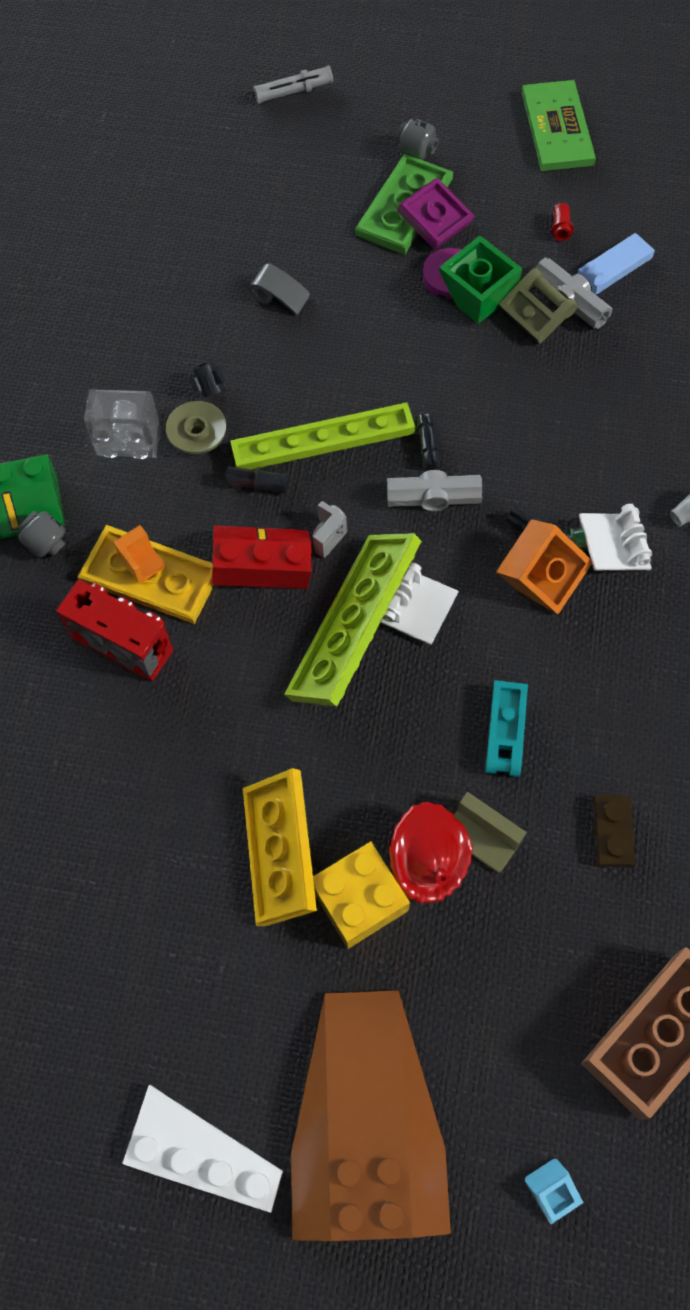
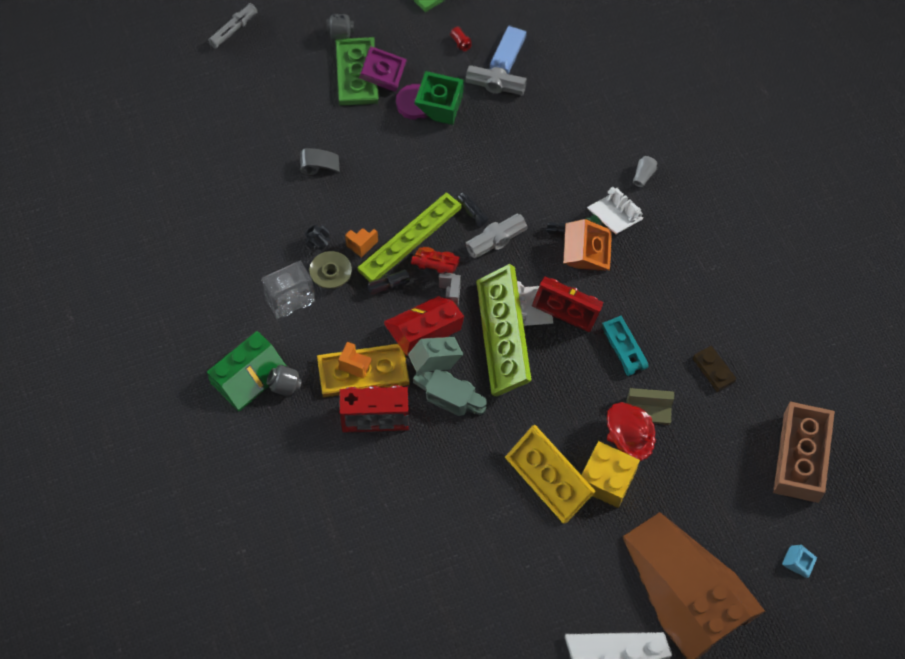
camera: 35 degrees left, 5 degrees down
(231, 663) = (450, 392): none -> sand green hinge
(241, 601) = (435, 354): none -> sand green brick
(262, 413) = (362, 241): none -> orange panel
(331, 482) = (442, 262): none -> red plate
(463, 627) = (567, 304): none -> red slope
(533, 314) = (481, 103): olive plate -> none

